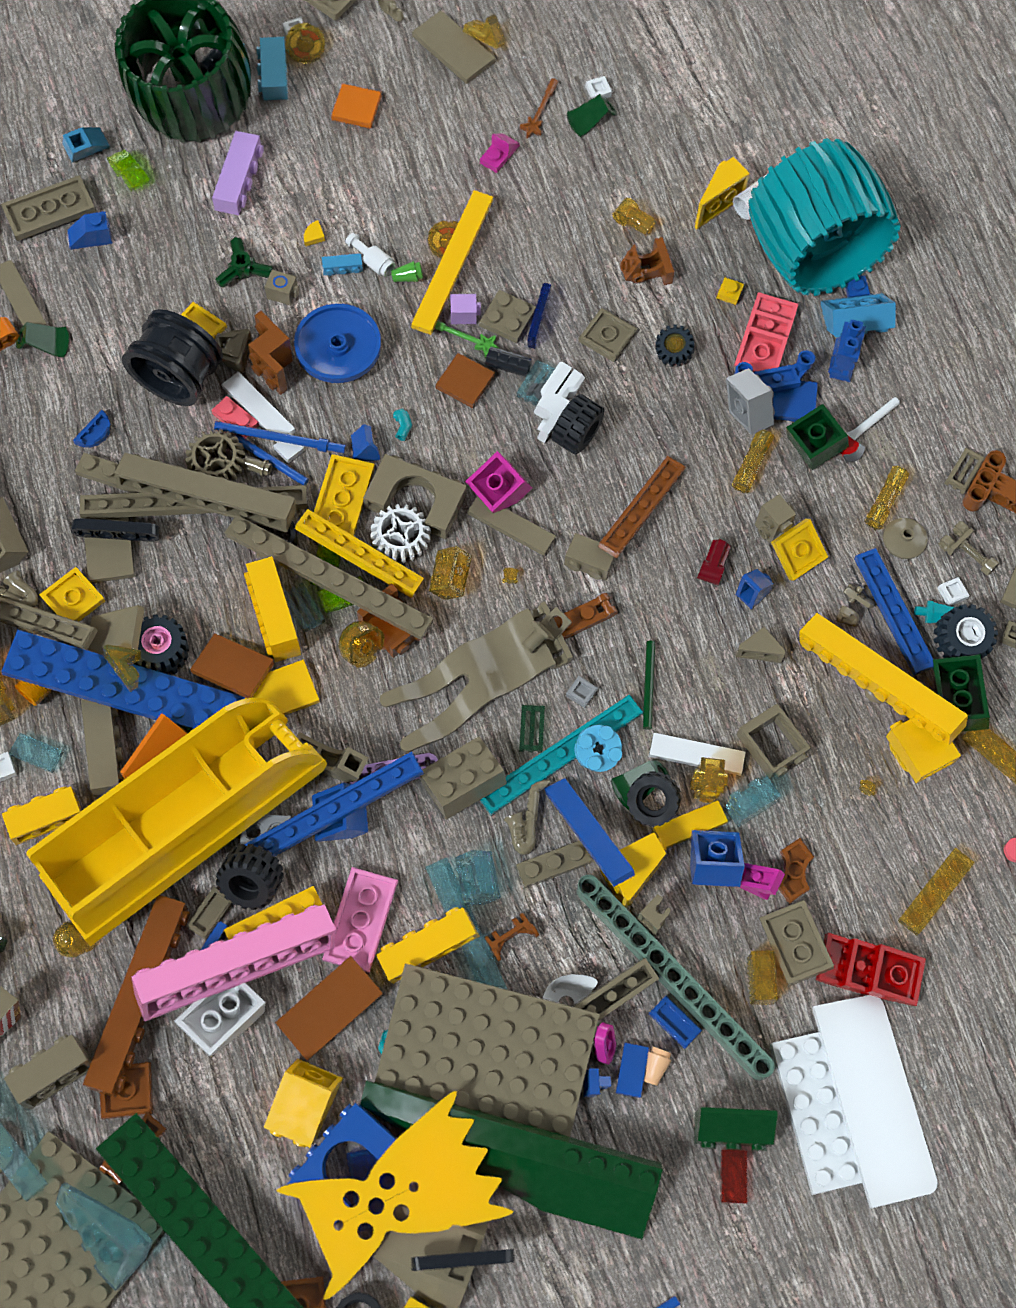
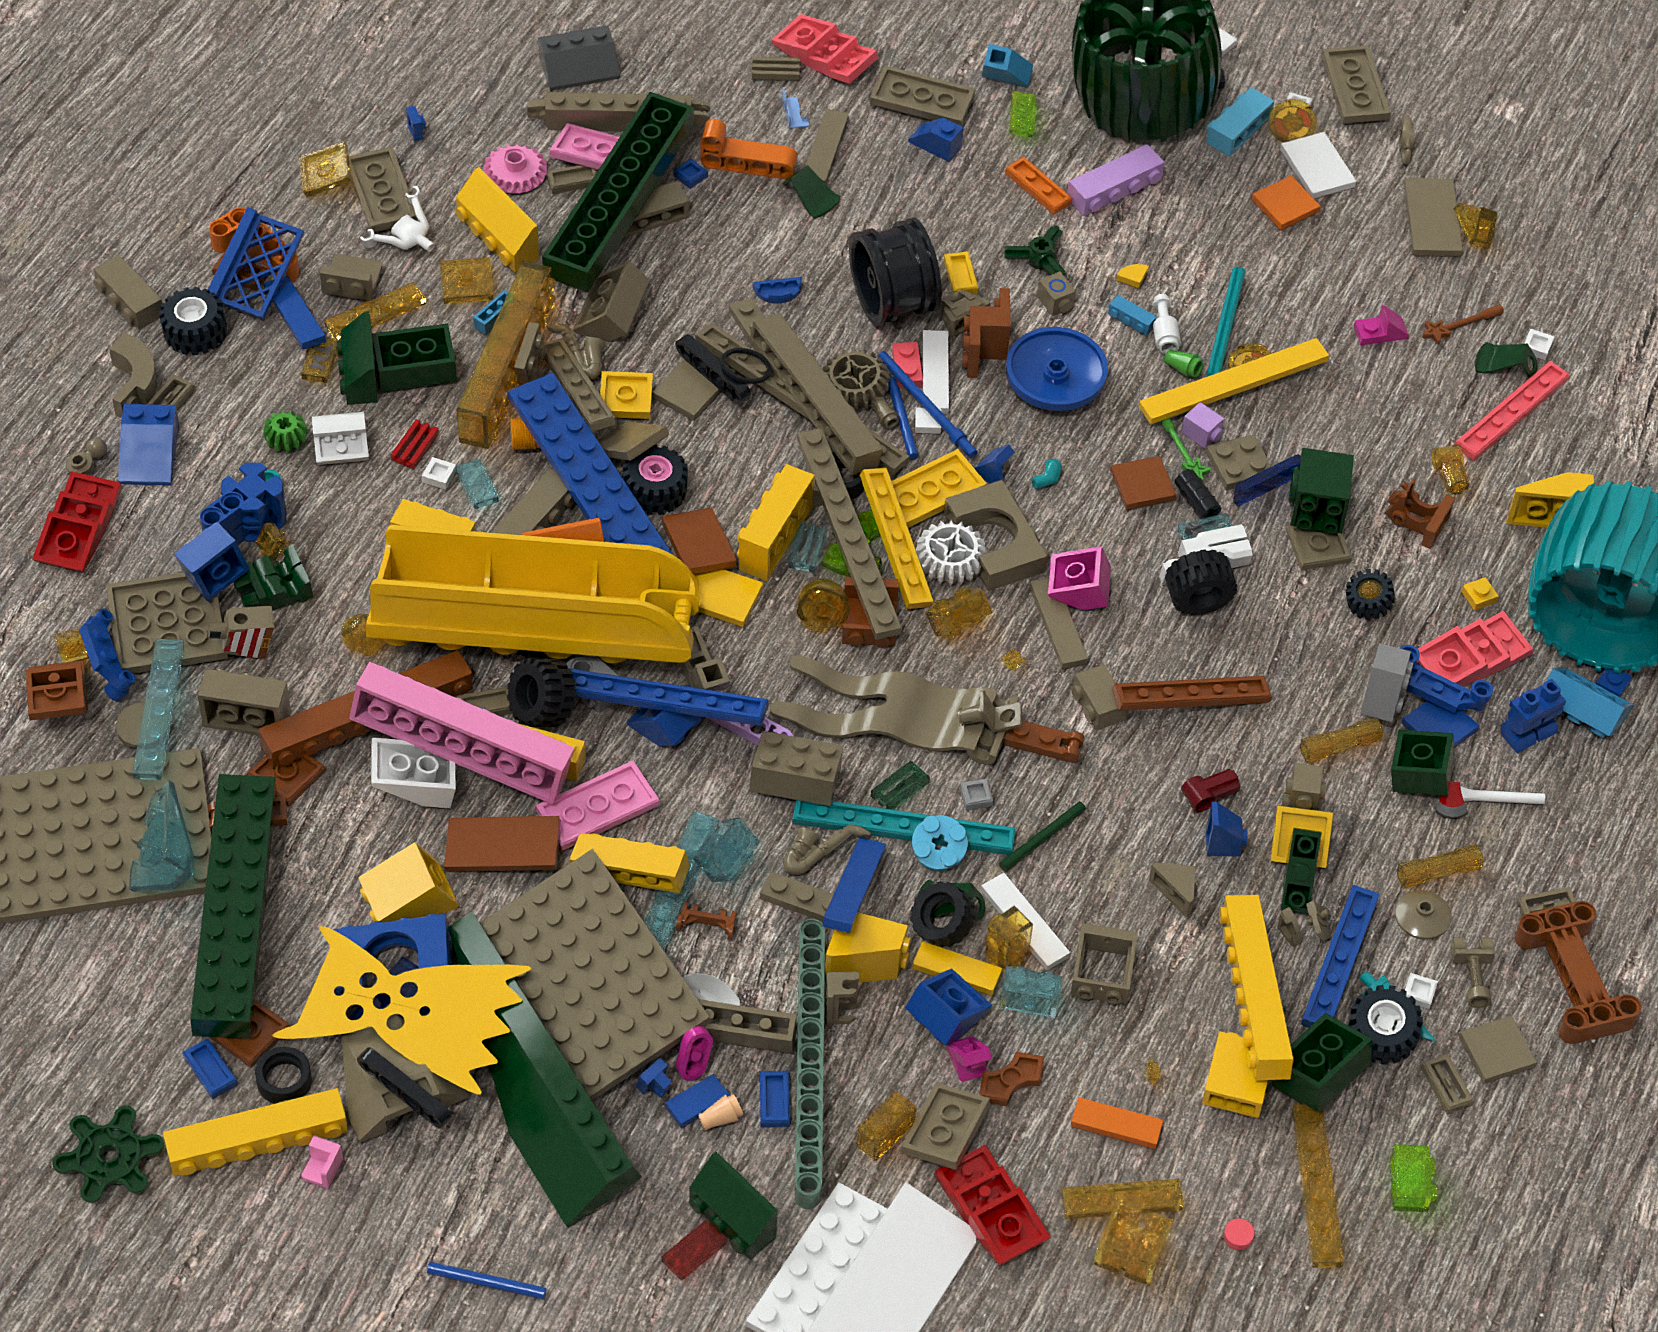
camera: 45 degrees right, 15 degrees down
(120, 659) = (610, 458): clear yellow slope -> none
(138, 525) = (742, 379): none -> black piece
(189, 215) = (1038, 185): none -> orange tile
(349, 63) = (1318, 165): none -> white tile
(404, 223) = (1226, 321): none -> teal axle
(584, 297) = (1321, 491): none -> dark green brick
(627, 147) = (1512, 410): none -> coral tile
(822, 575) = (1300, 869): none -> dark green slope
(881, 842) = (1117, 1123): none -> orange tile
(976, 916) = (1130, 1247): none -> clear yellow piece

